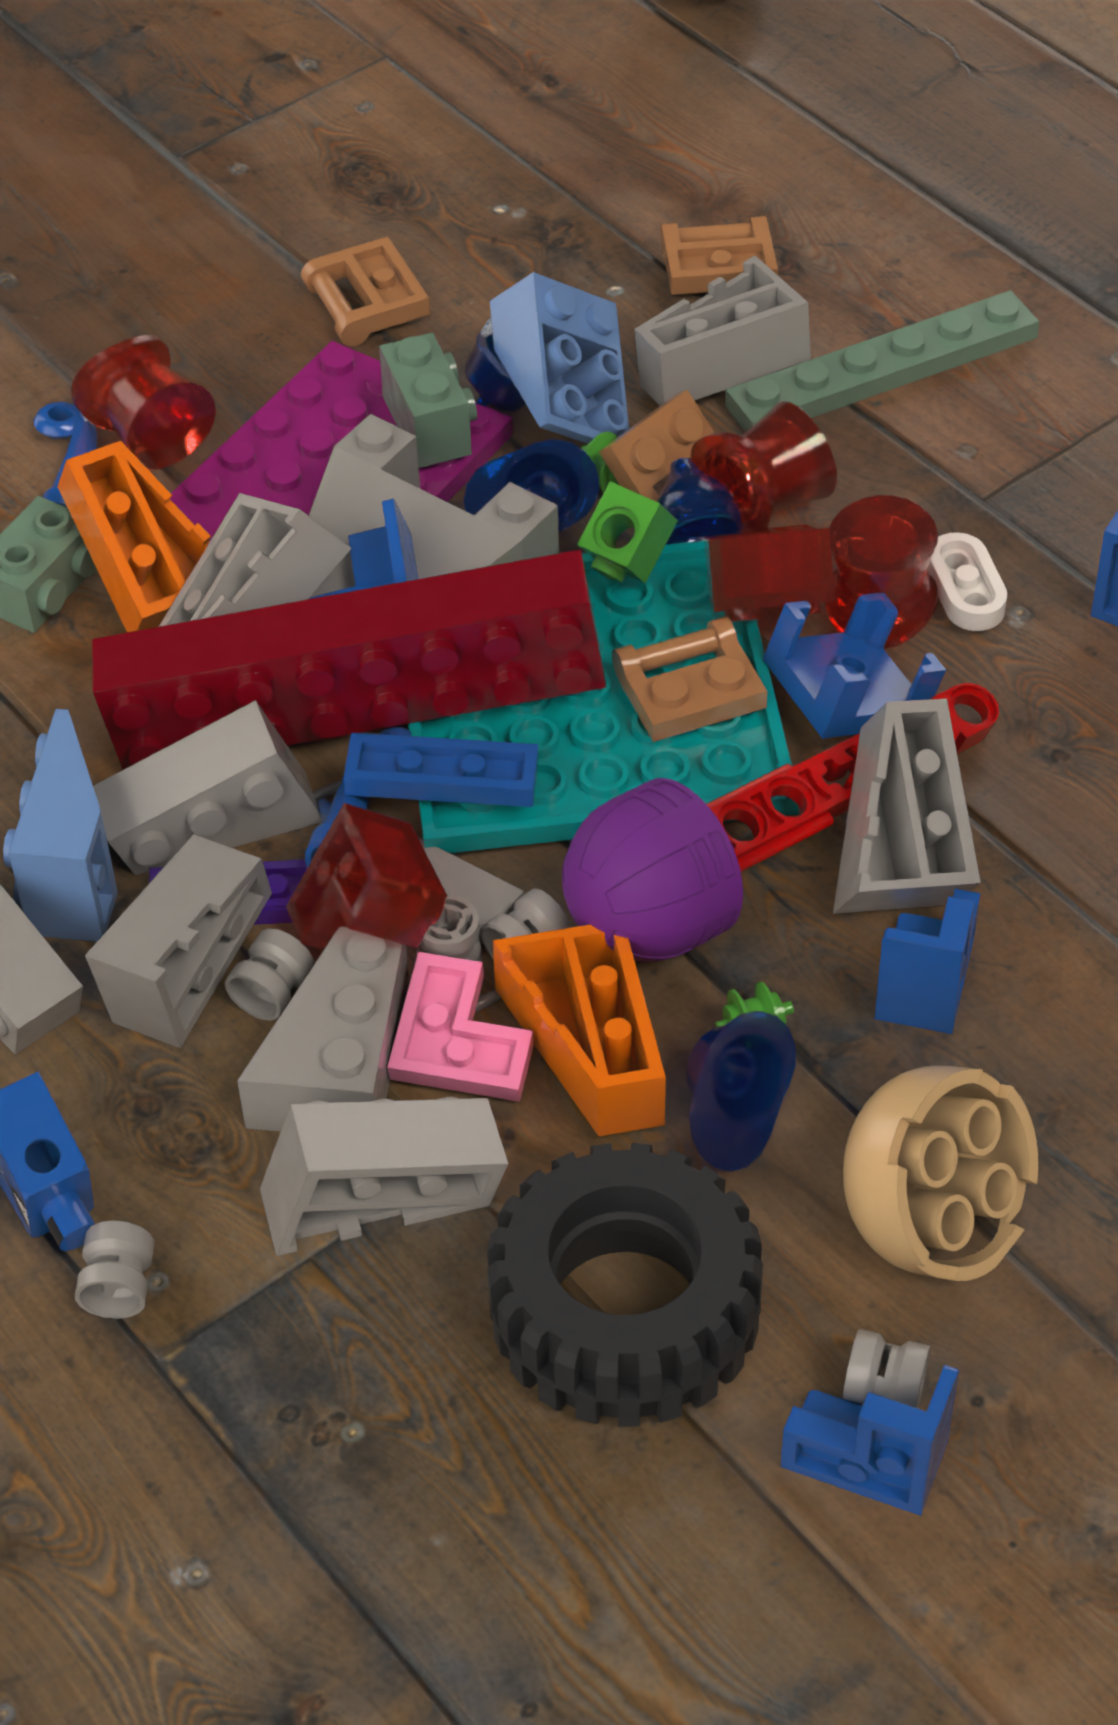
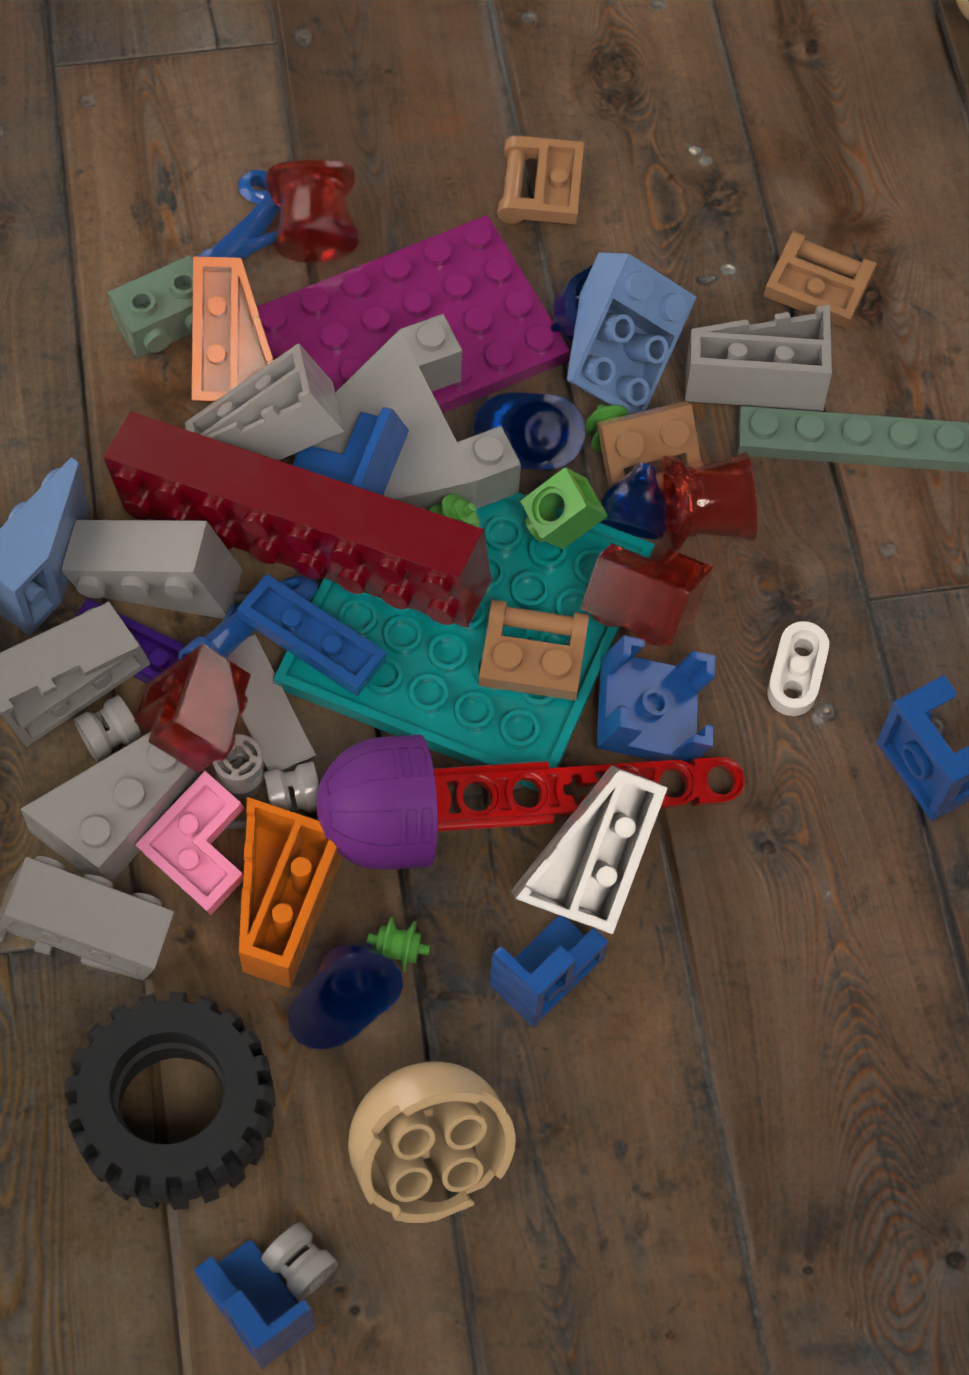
camera: 25 degrees right, 15 degrees up
(427, 399) = (502, 313): sand green brick -> none
(884, 548) = (738, 624): clear red hat -> none

